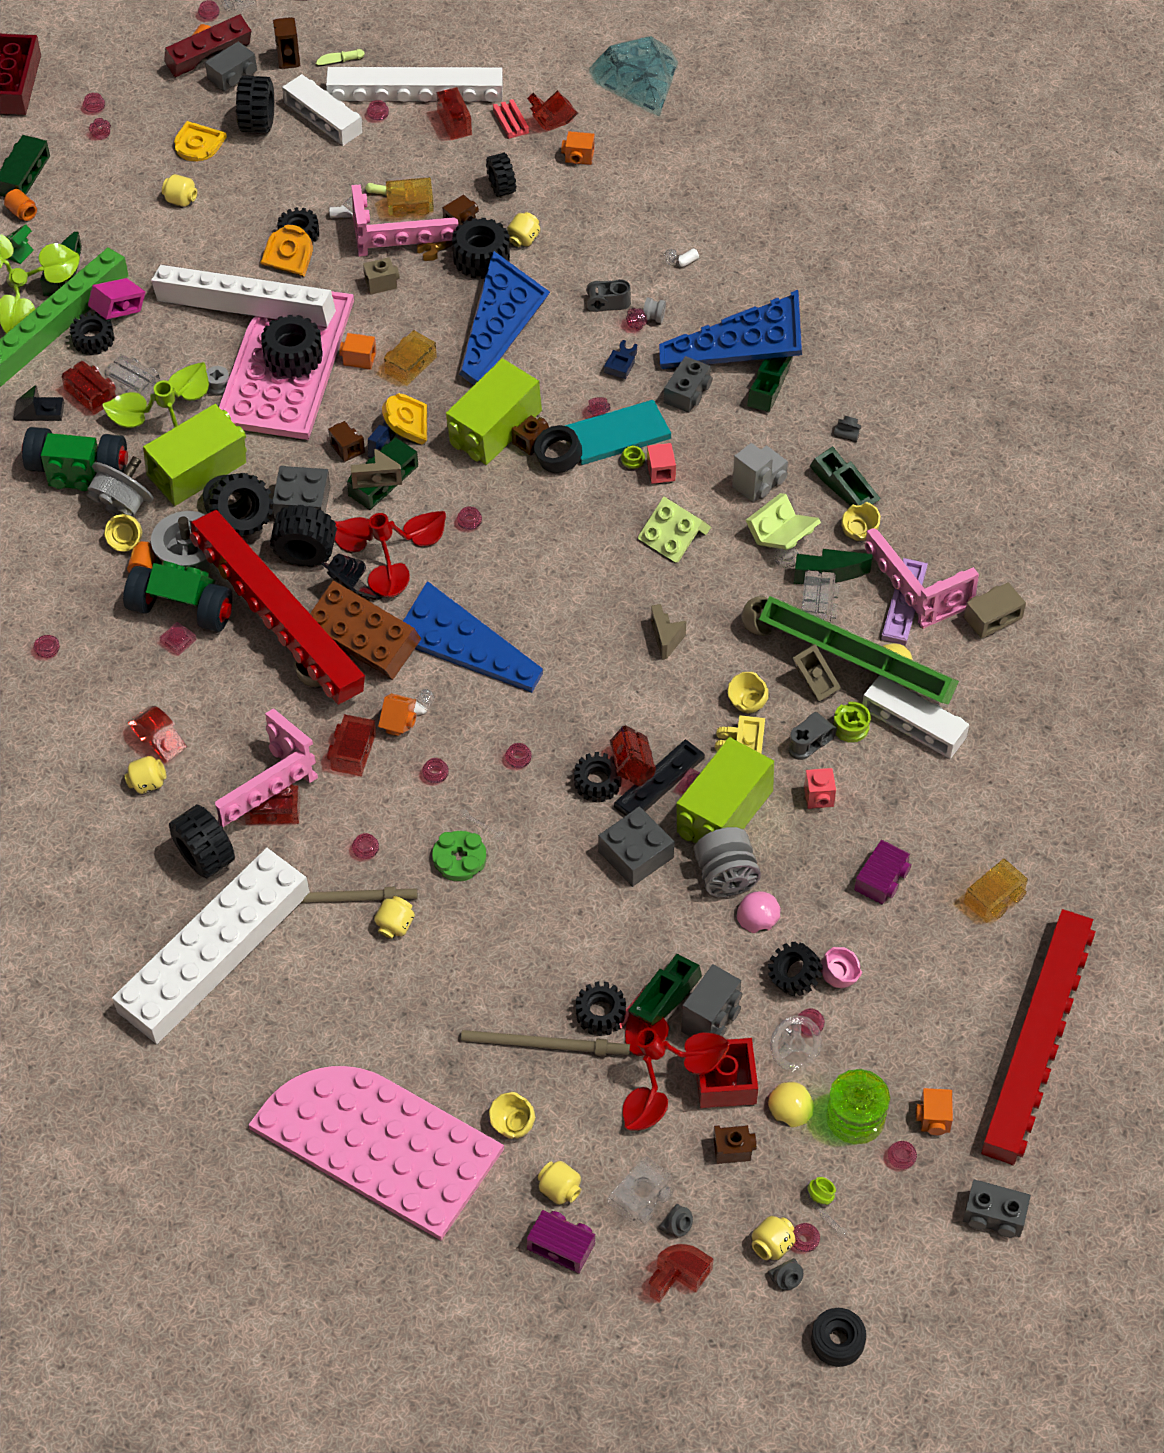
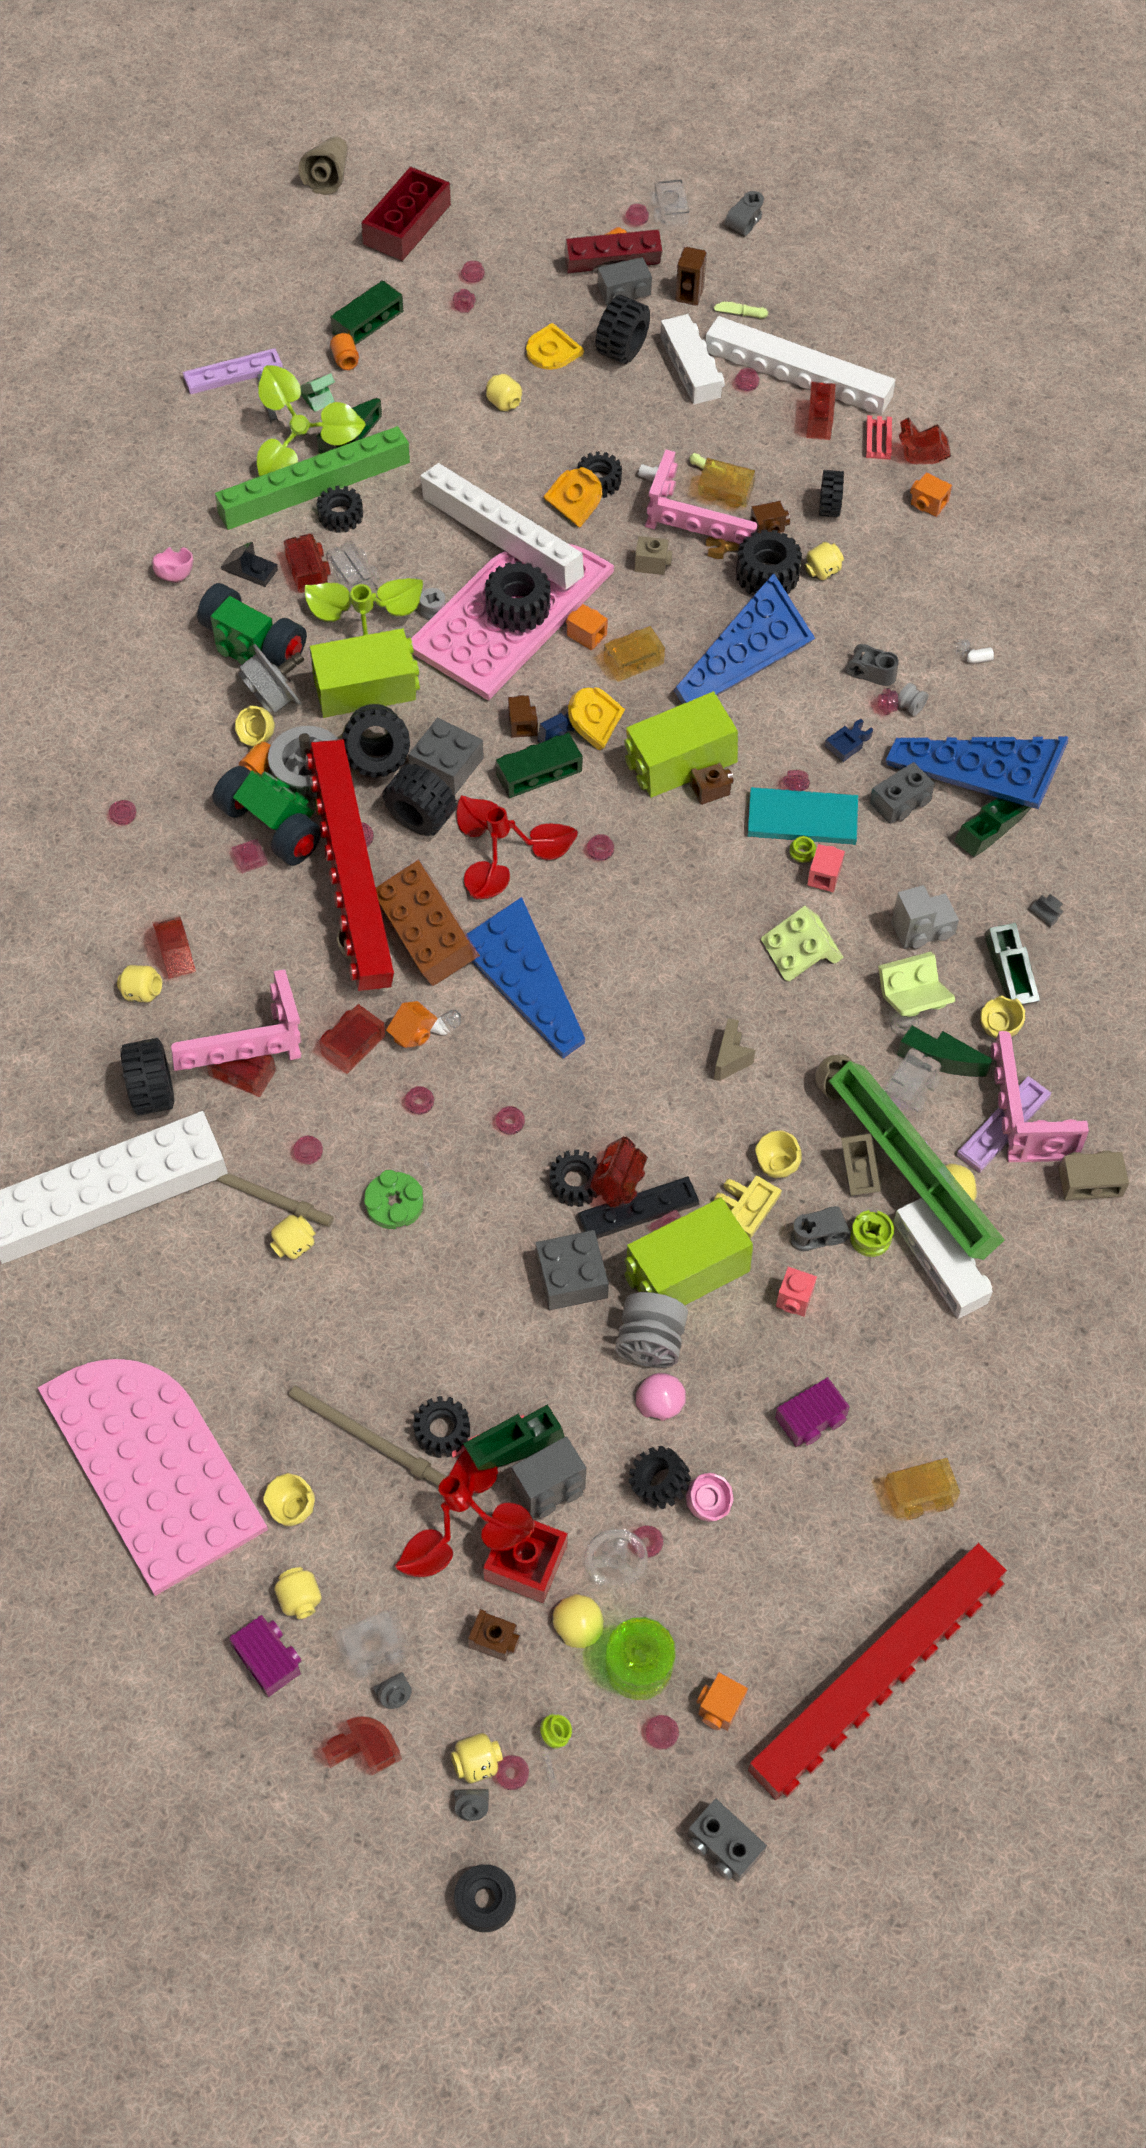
camera: 25 degrees right, 5 degrees up
(116, 298) = (379, 481): dark pink brick -> none
(349, 572) = (443, 860): black hinge -> none
(381, 473) = (527, 765): dark tan slope -> none
(561, 463) = (734, 825): black tyre -> none
(637, 71) = (1040, 434): clear light blue wedge -> none

